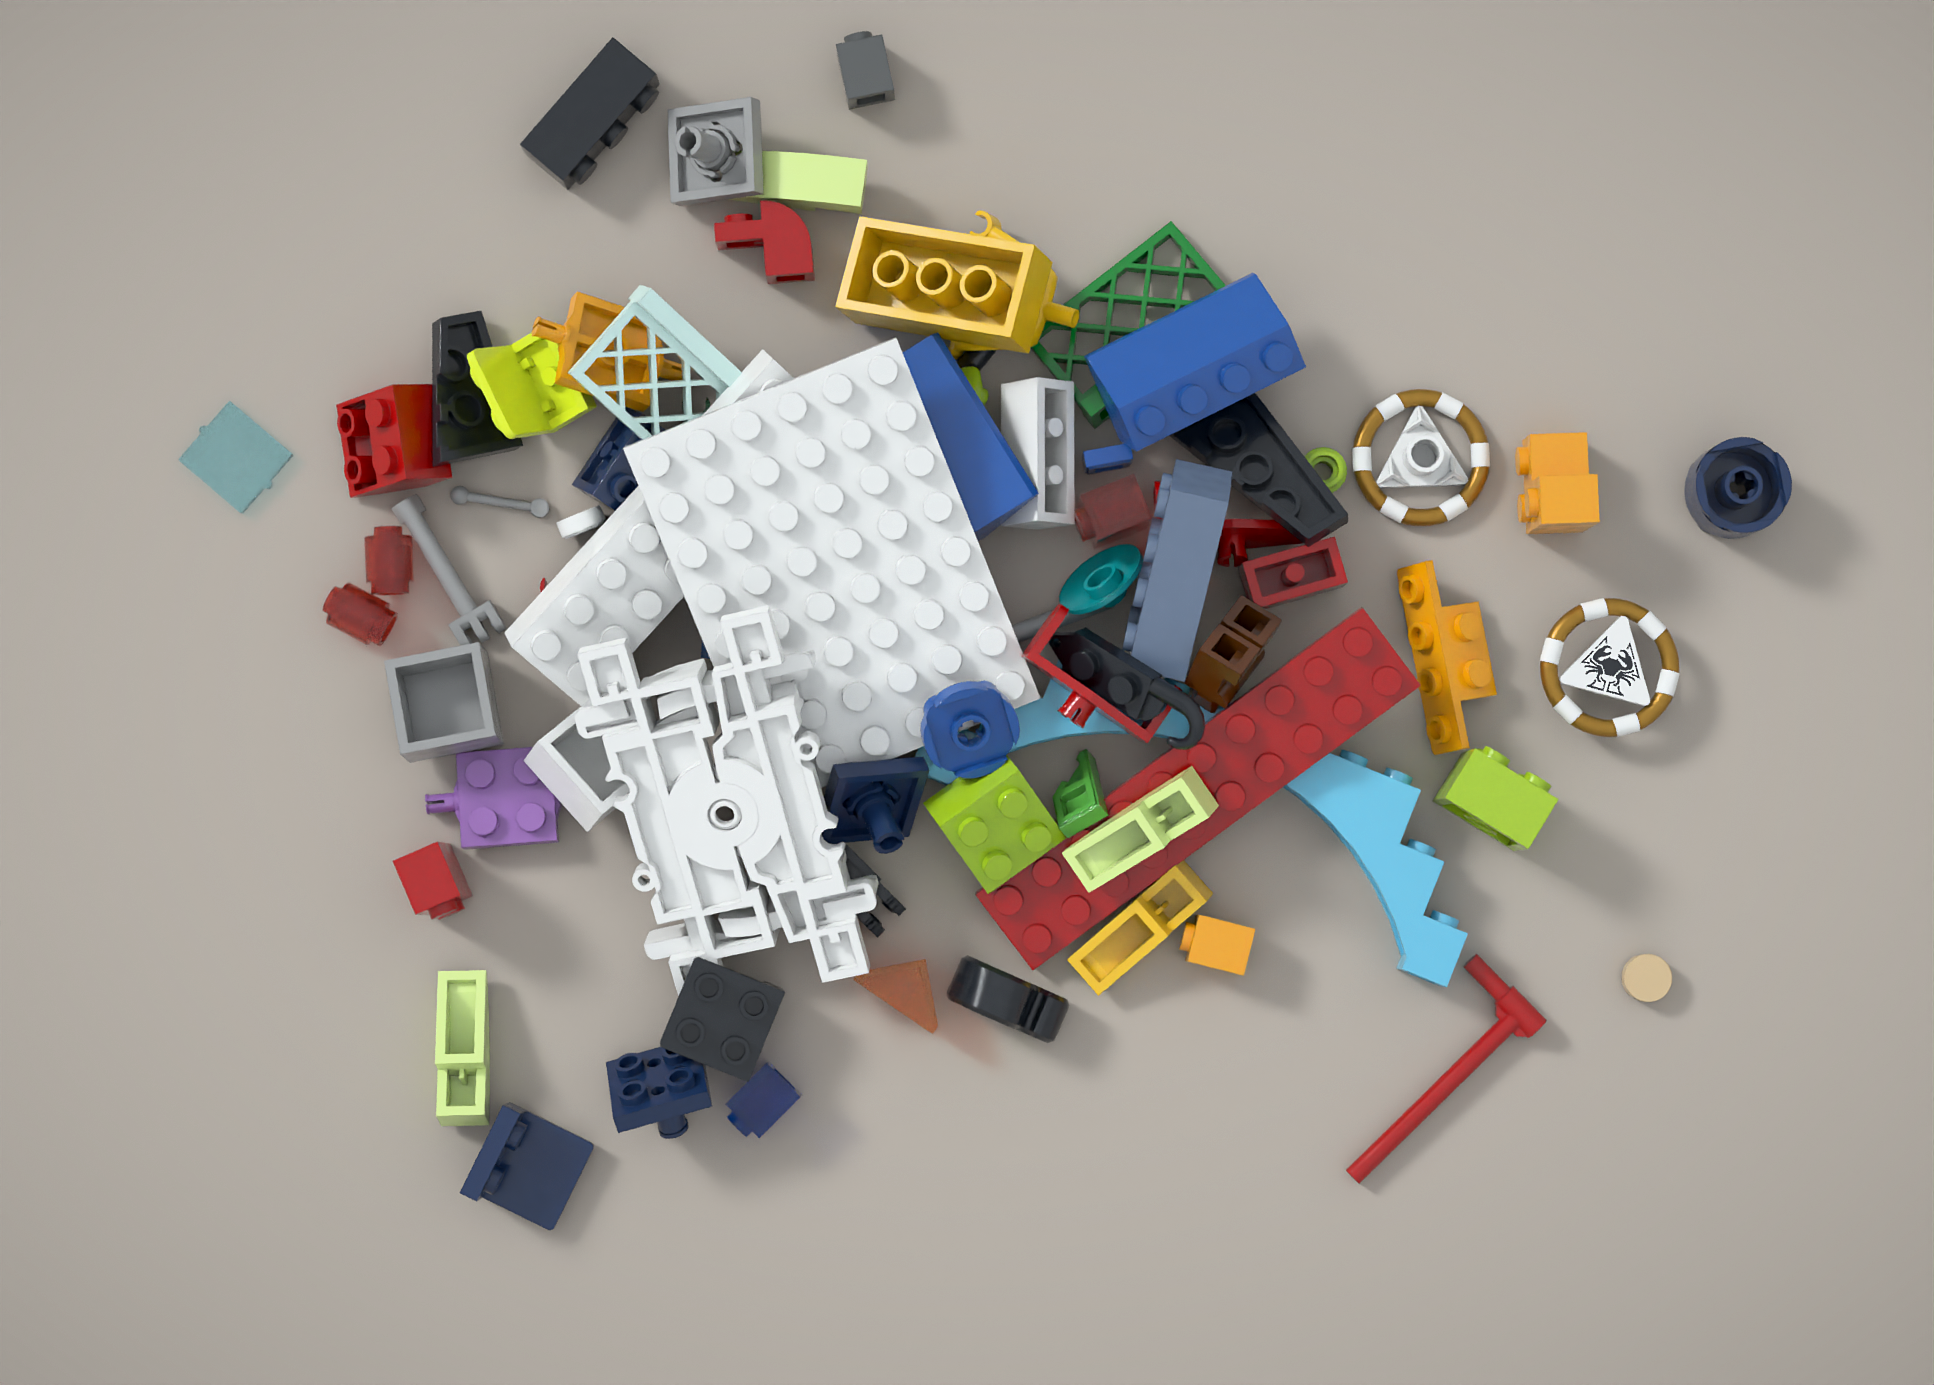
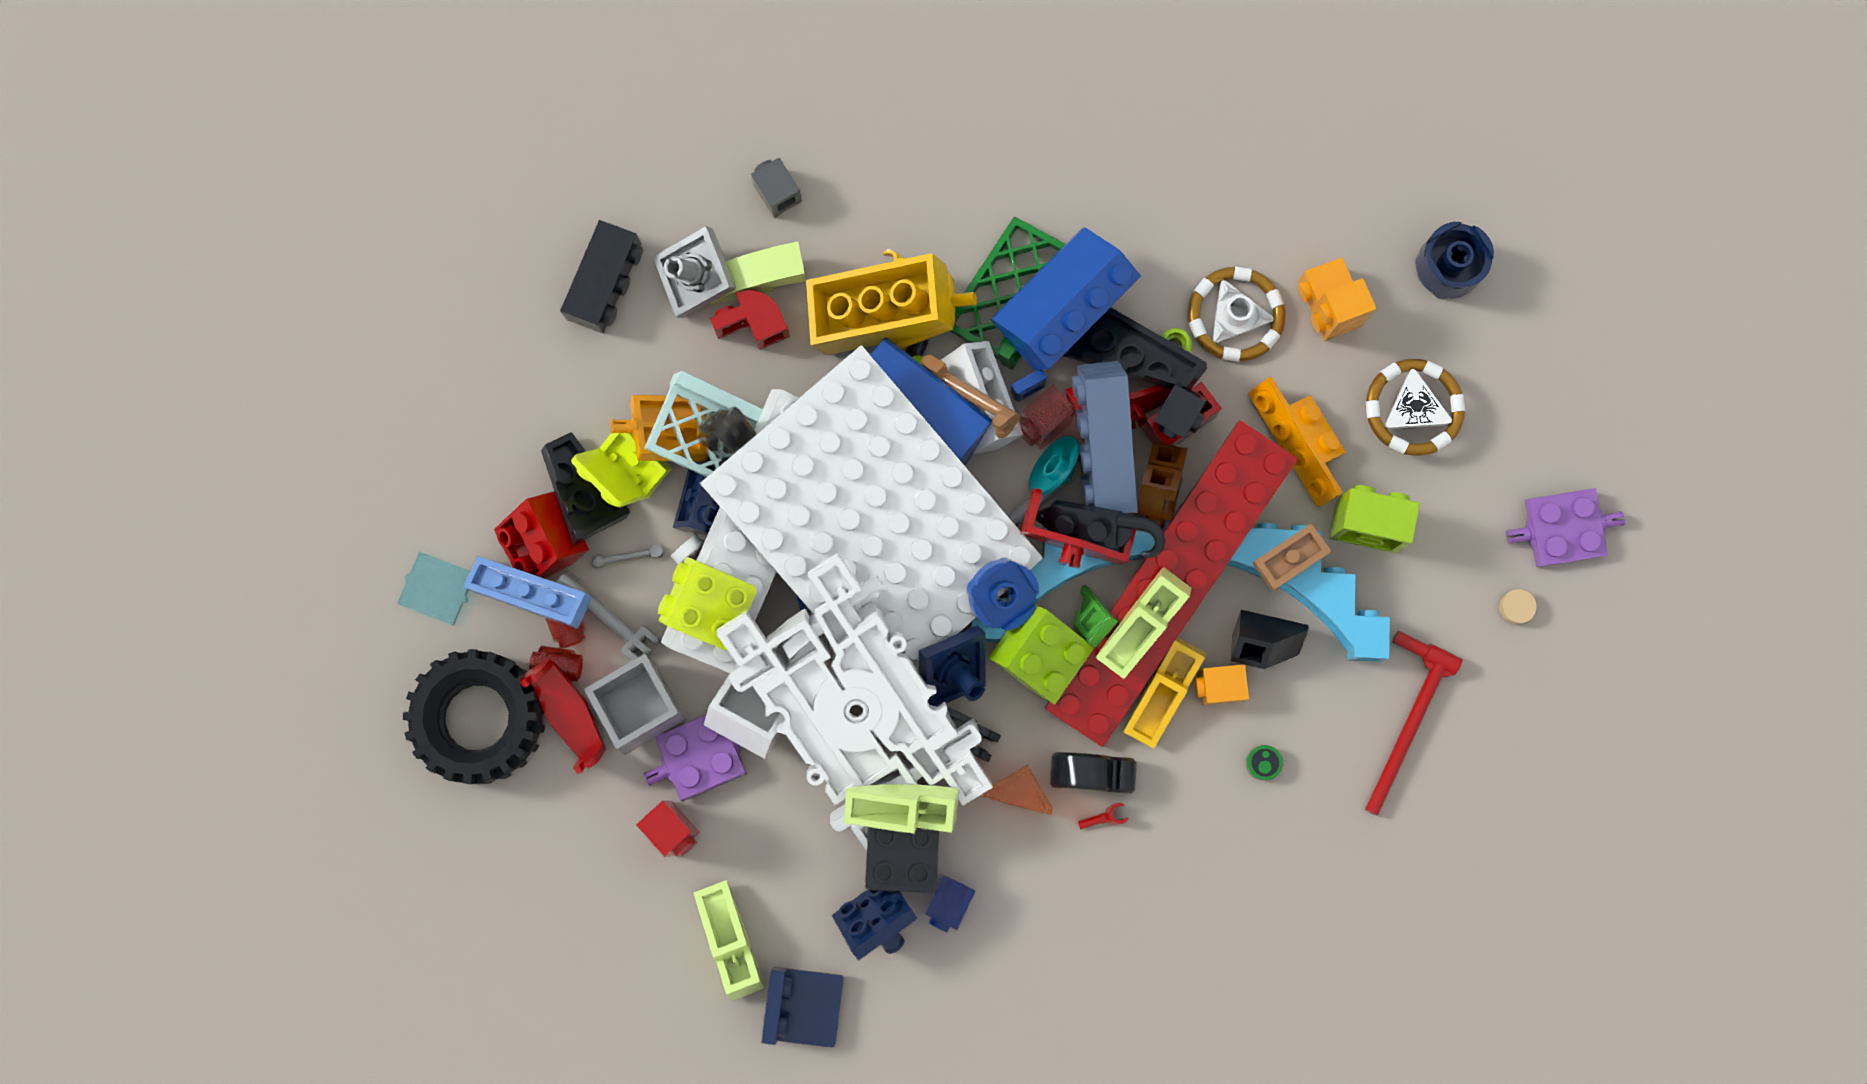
camera: 15 degrees left, 5 degrees down
(168, 635) = (428, 718): none -> black tyre
(352, 683) = (566, 713): none -> red piece
(353, 507) = (527, 592): none -> medium blue plate
(578, 601) = (704, 601): none -> neon yellow bracket
(680, 390) = (725, 432): none -> clear smoke slope
(742, 958) = (902, 807): none -> yellowish green slope
(1000, 1061) = (1103, 818): none -> red hand
(1054, 497) = (1004, 419): none -> medium nougat hinge
(1236, 1064) = (1264, 762): none -> tile
(1288, 570) = (1181, 412): none -> black brick
(1296, 906) = (1265, 640): none -> black slope
(1366, 810) = (1291, 557): none -> medium nougat plate
(1750, 896) = (1565, 527): none -> medium lavender plate

